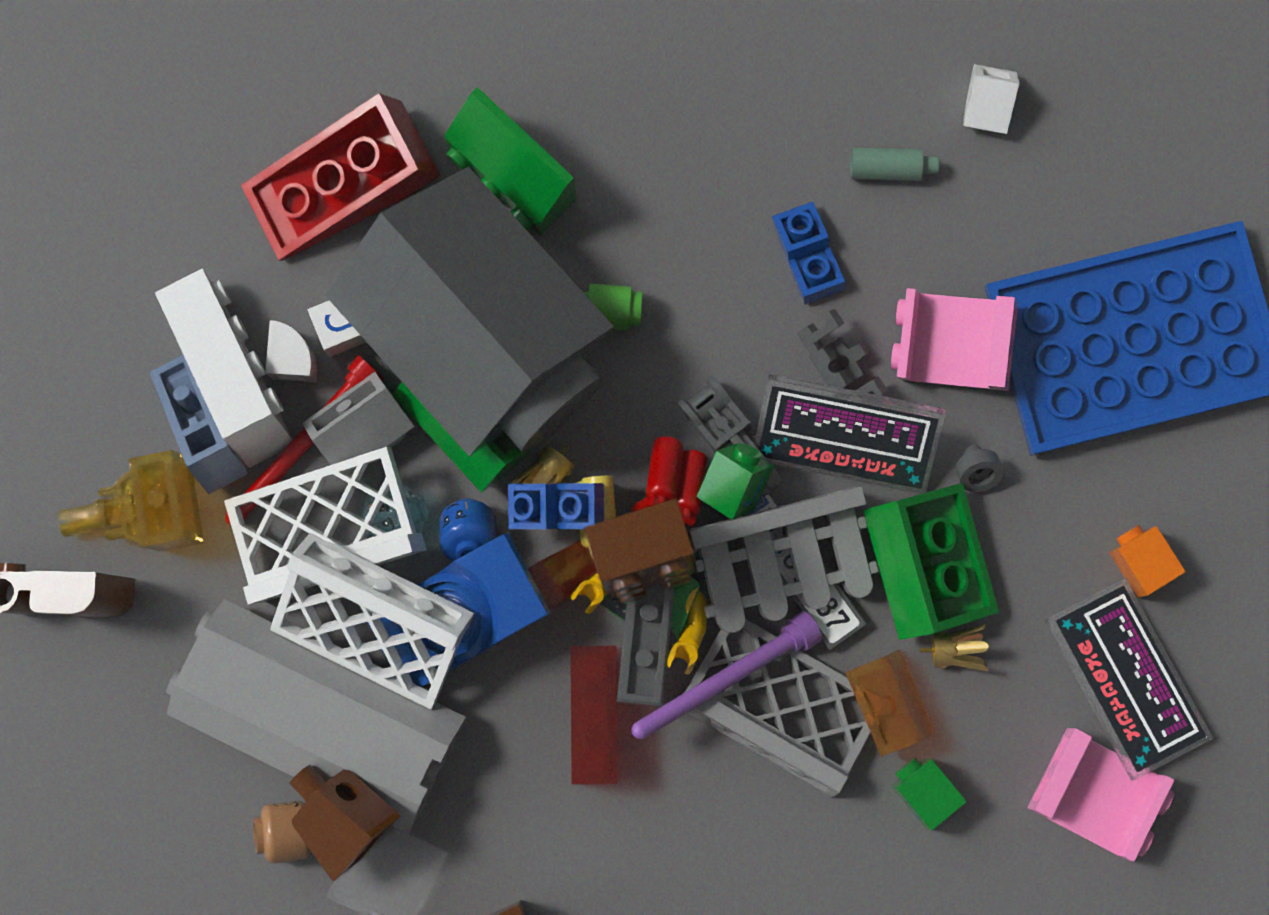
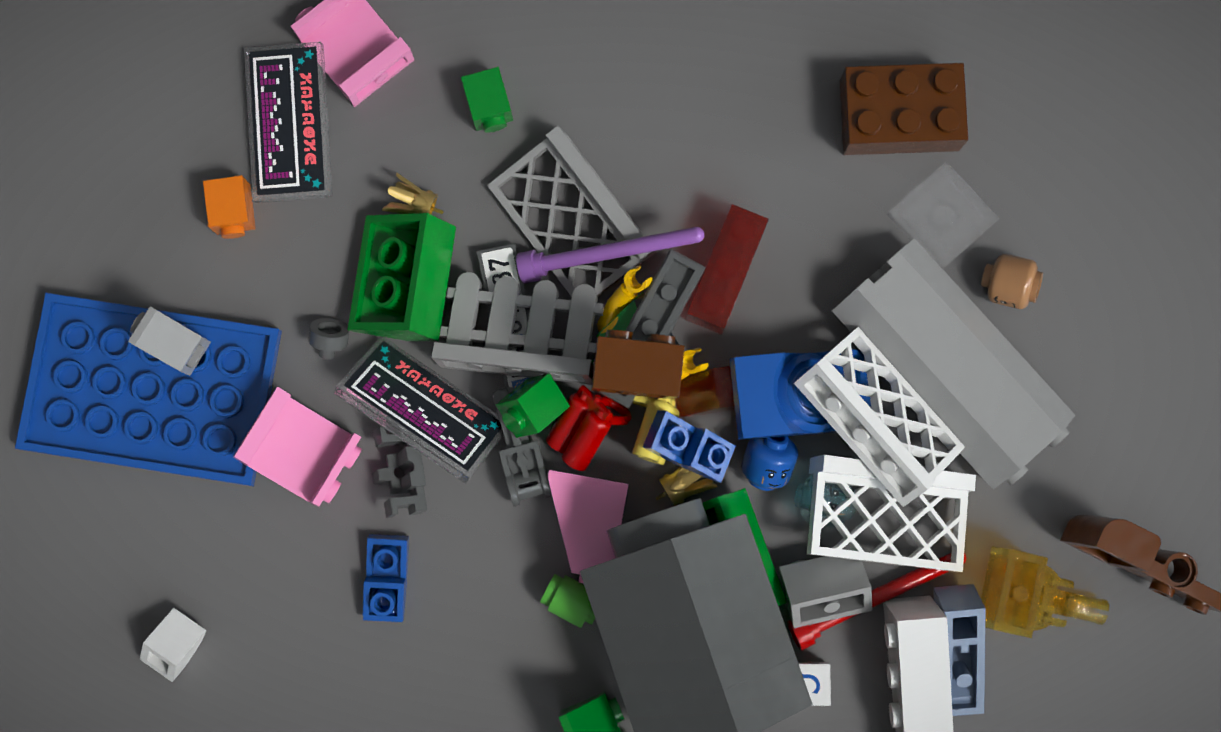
camera: 160 degrees left, 0 degrees up
(289, 355) = (859, 675): white brick -> none
(339, 818) = (966, 268): reddish brown torso -> none
(632, 398) = (585, 513): none -> bright pink slope
(890, 703) = (485, 180): clear orange panel -> none
(891, 164) = (282, 624): sand green cylinder -> none
(1138, 386) = (168, 340): none -> light grey slope

